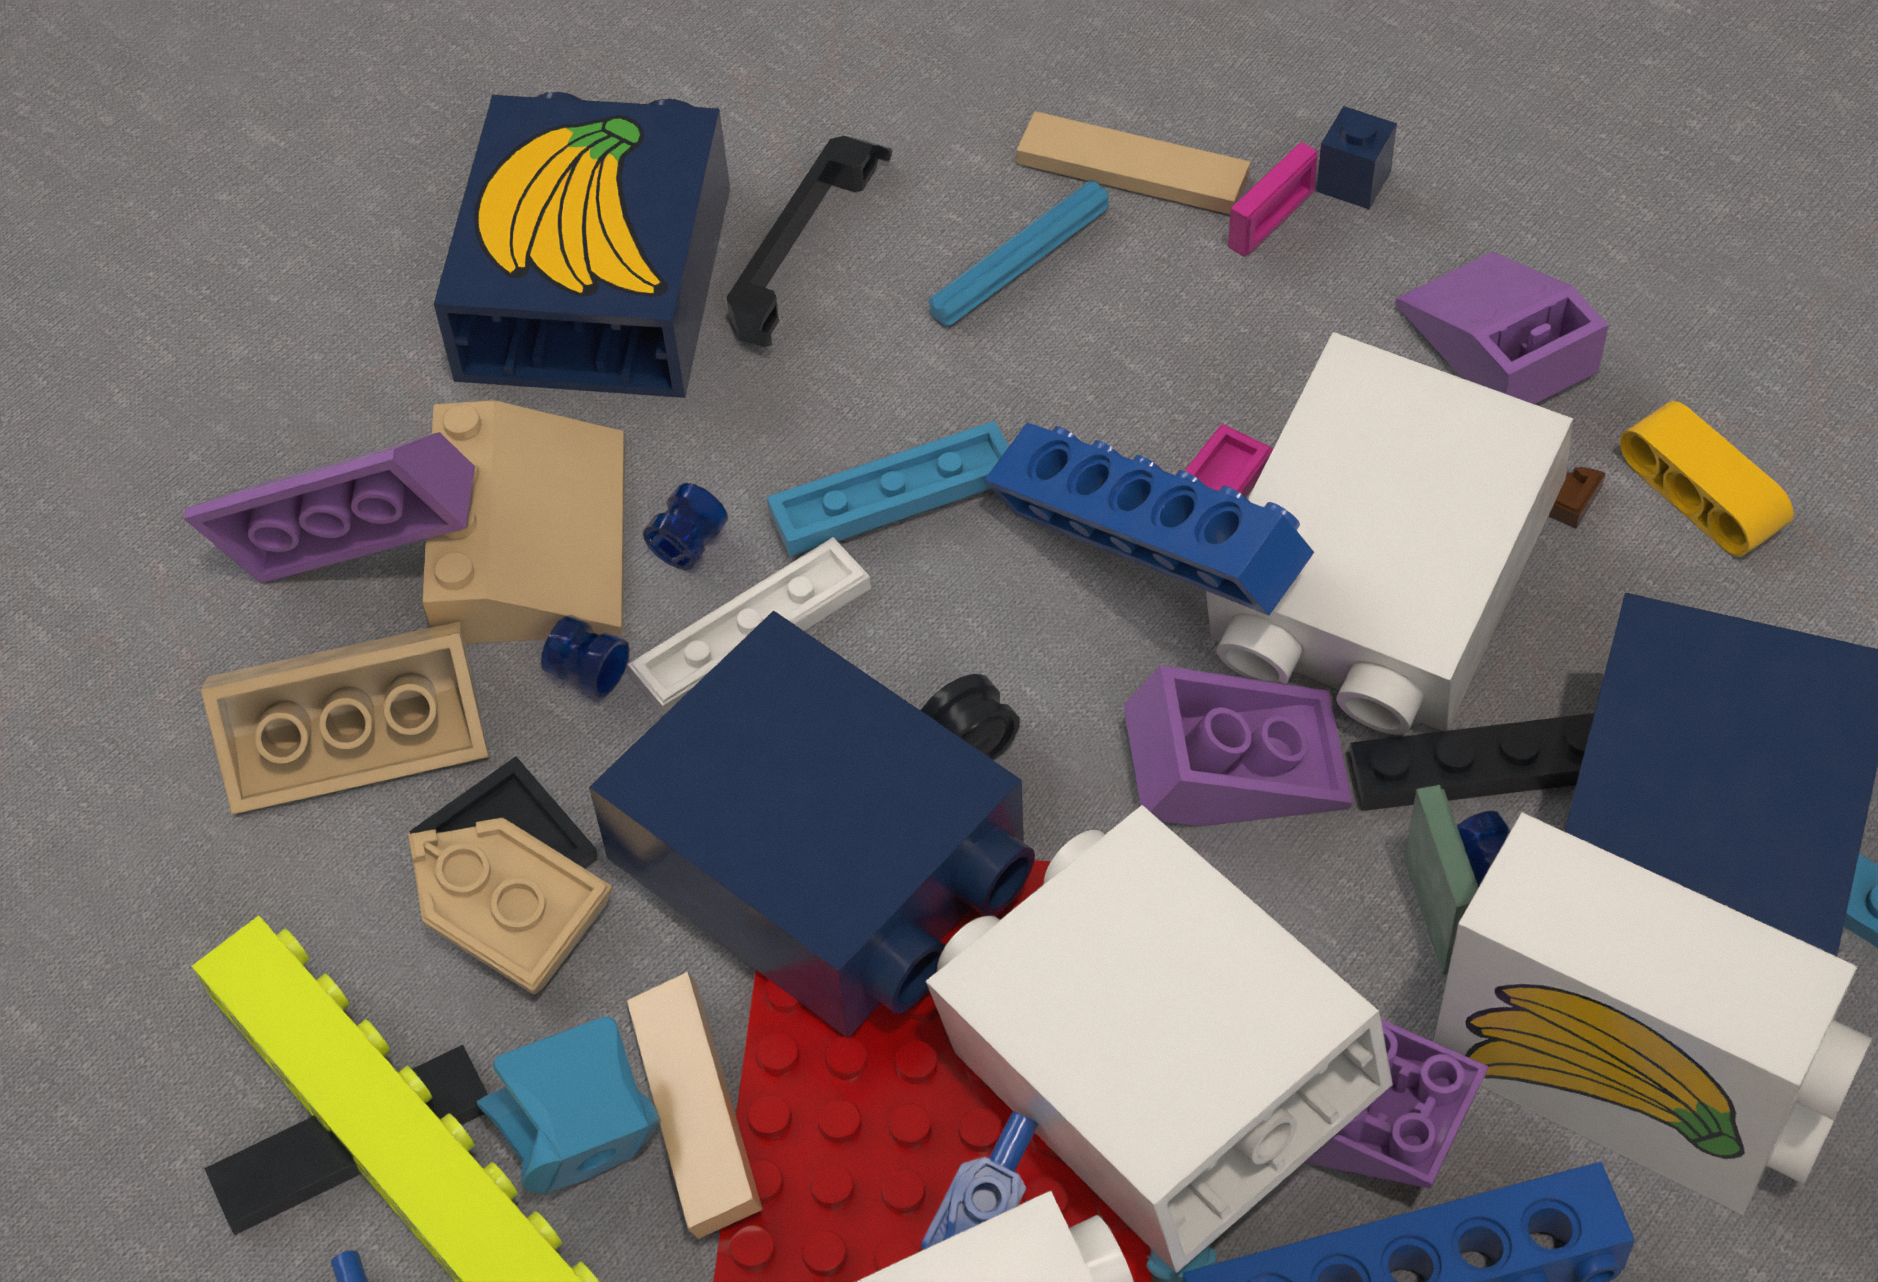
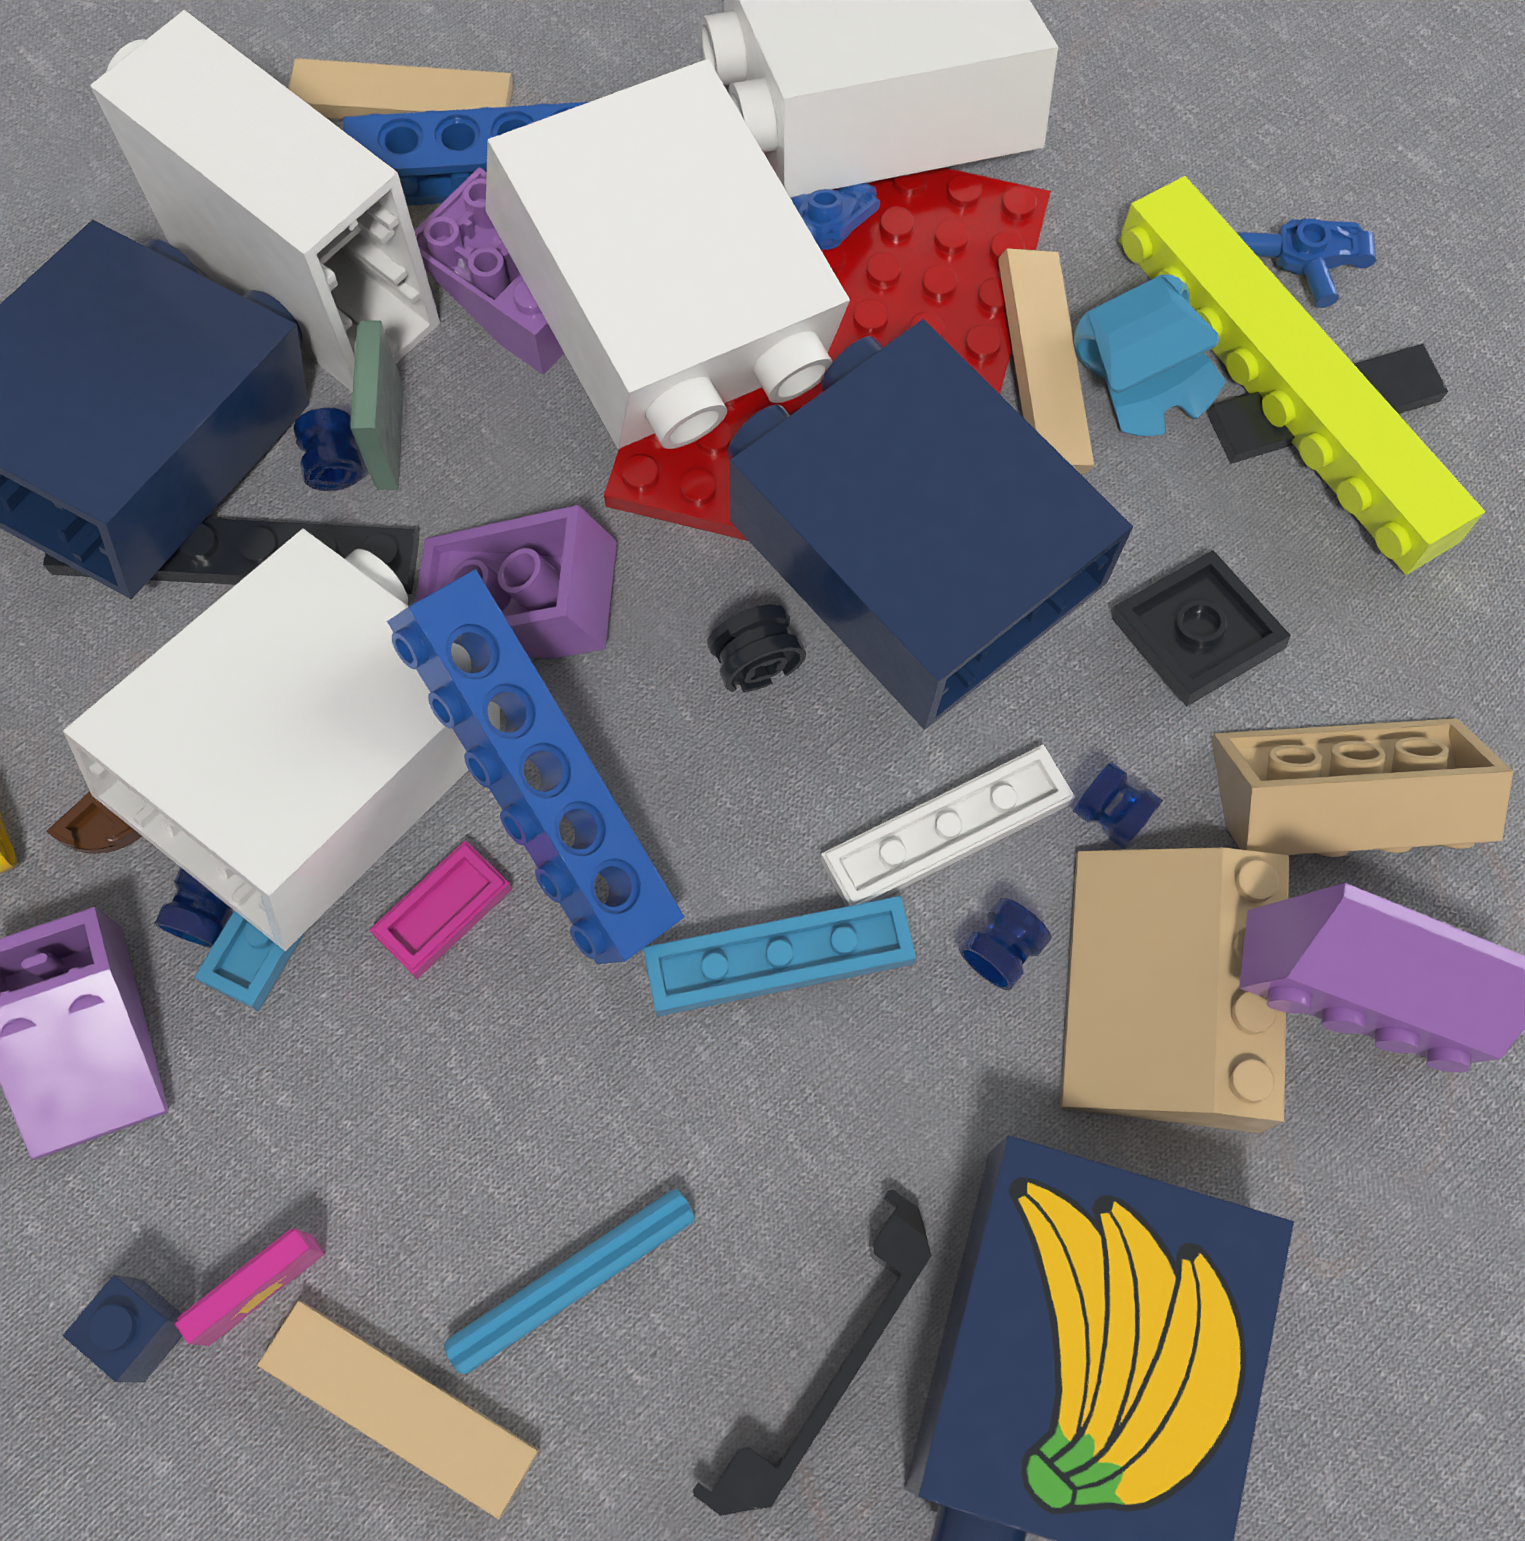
camera: 175 degrees left, 15 degrees up
(505, 898) = (1205, 560): tan tile -> none

